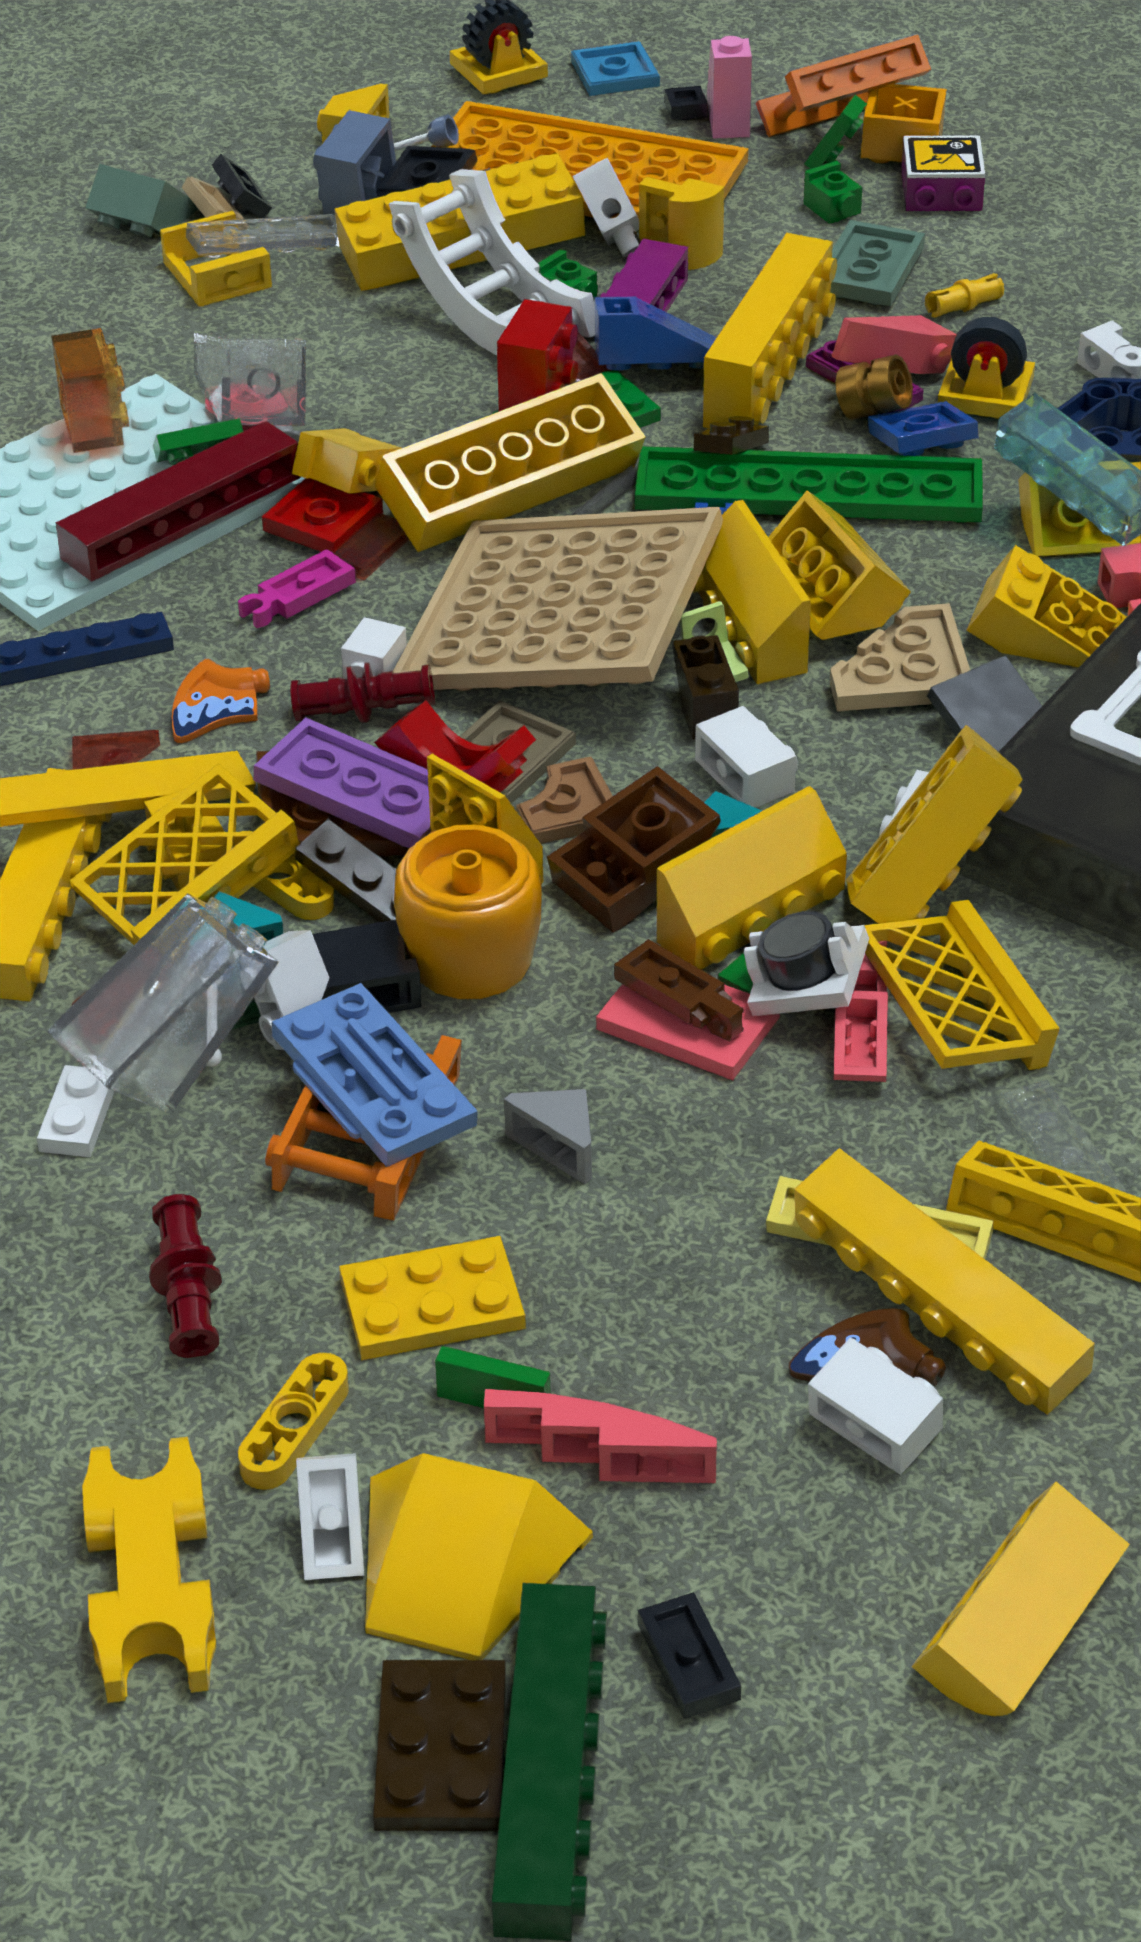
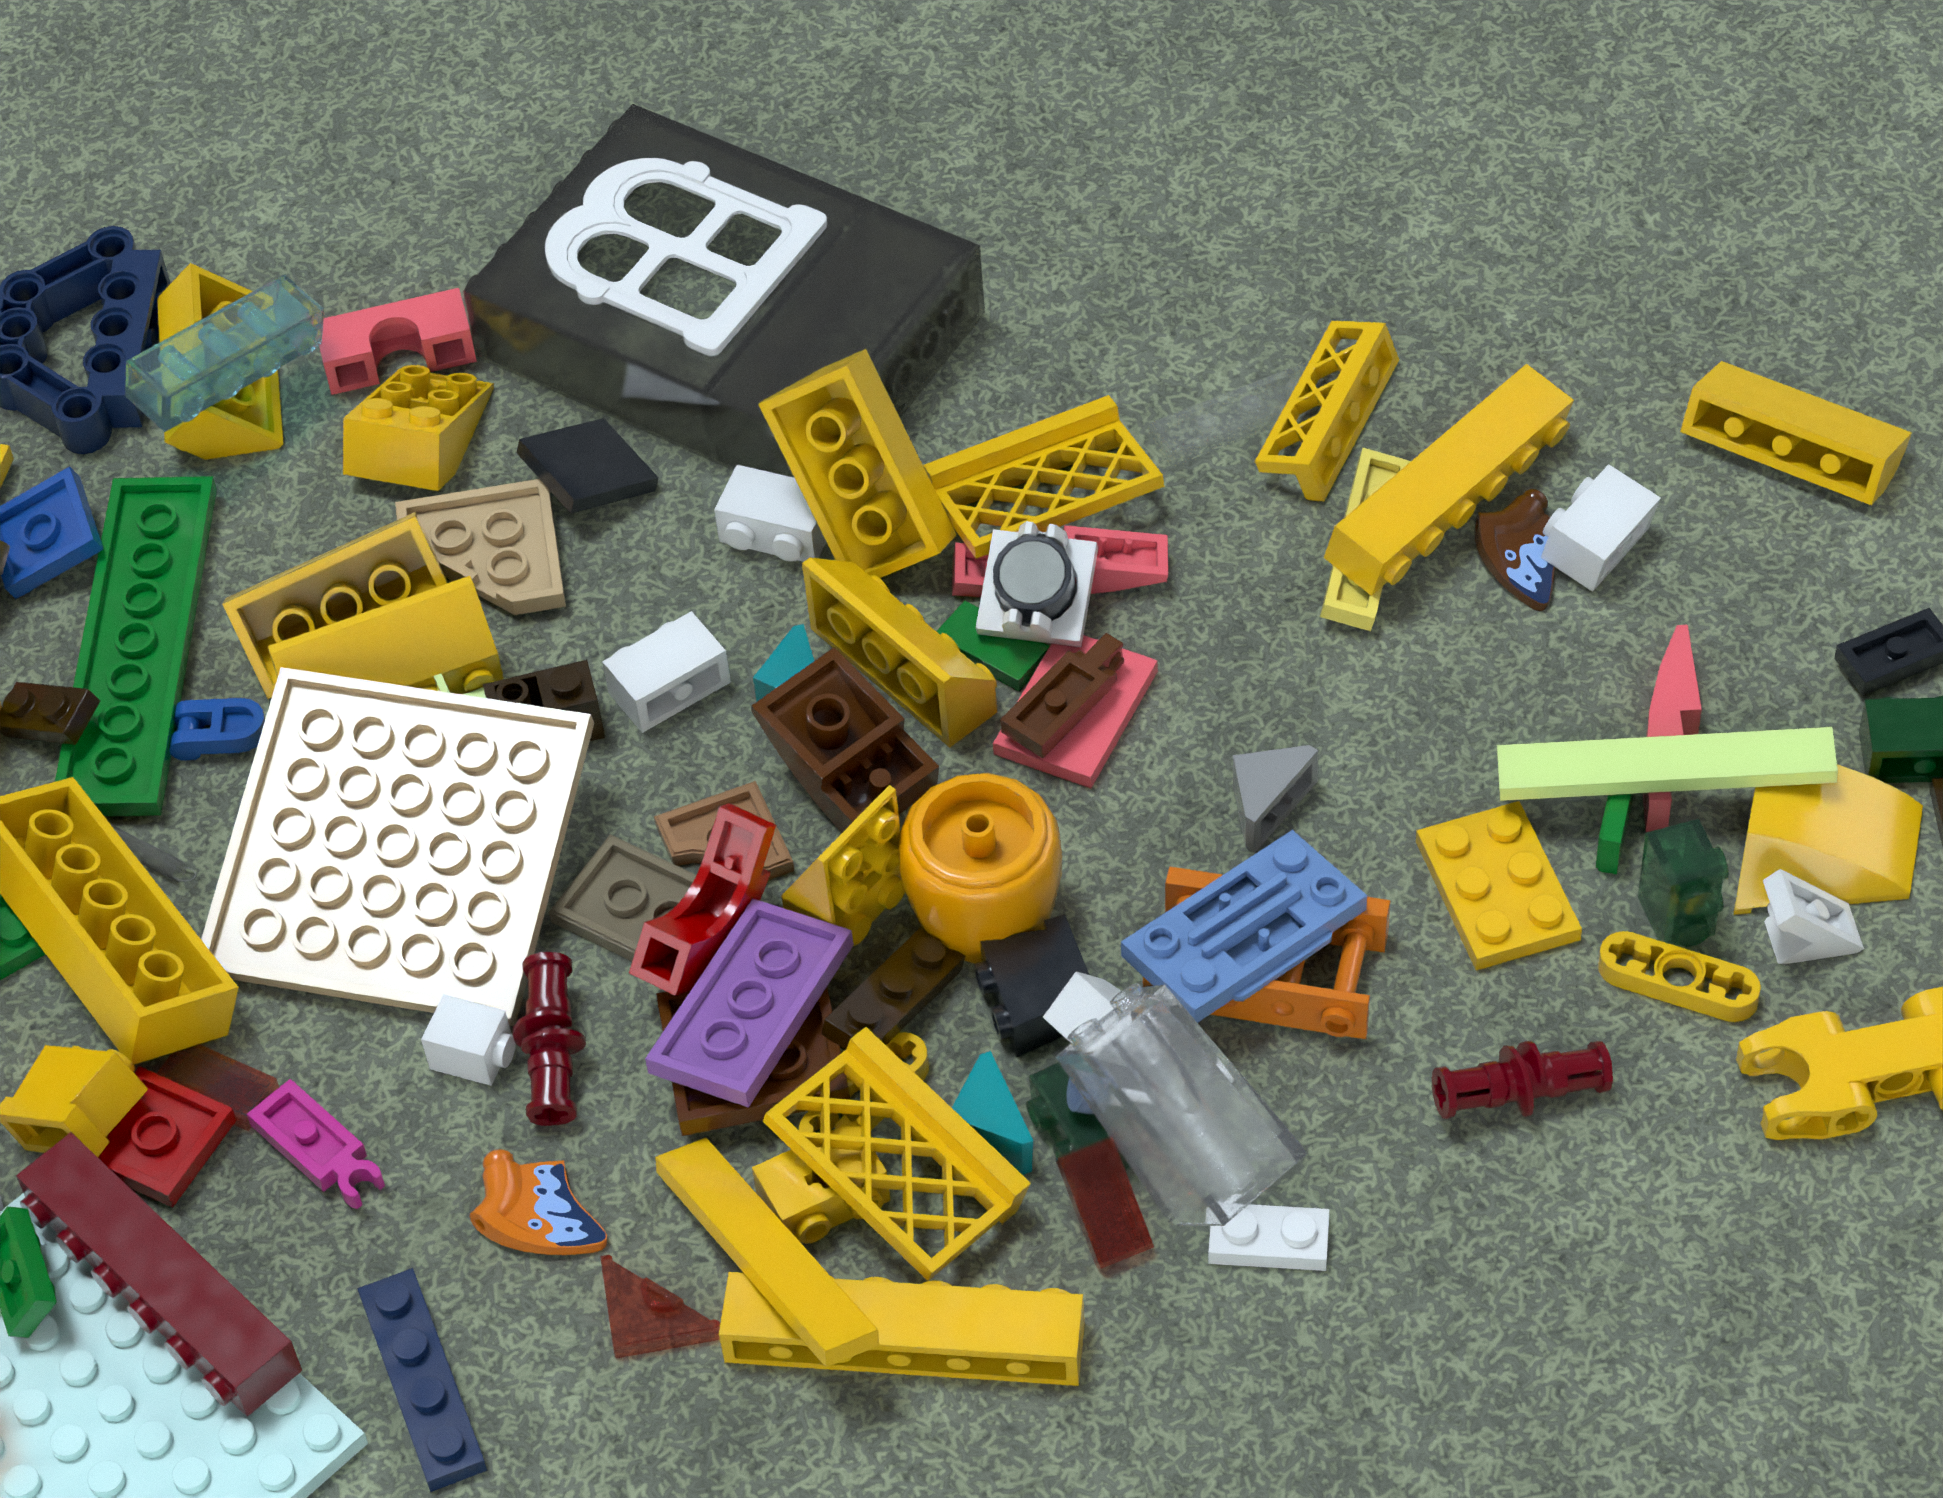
camera: 90 degrees left, 10 degrees up
(372, 1399) = (1682, 883): none -> clear green brick
(516, 1399) = (1667, 763): none -> yellowish green tile

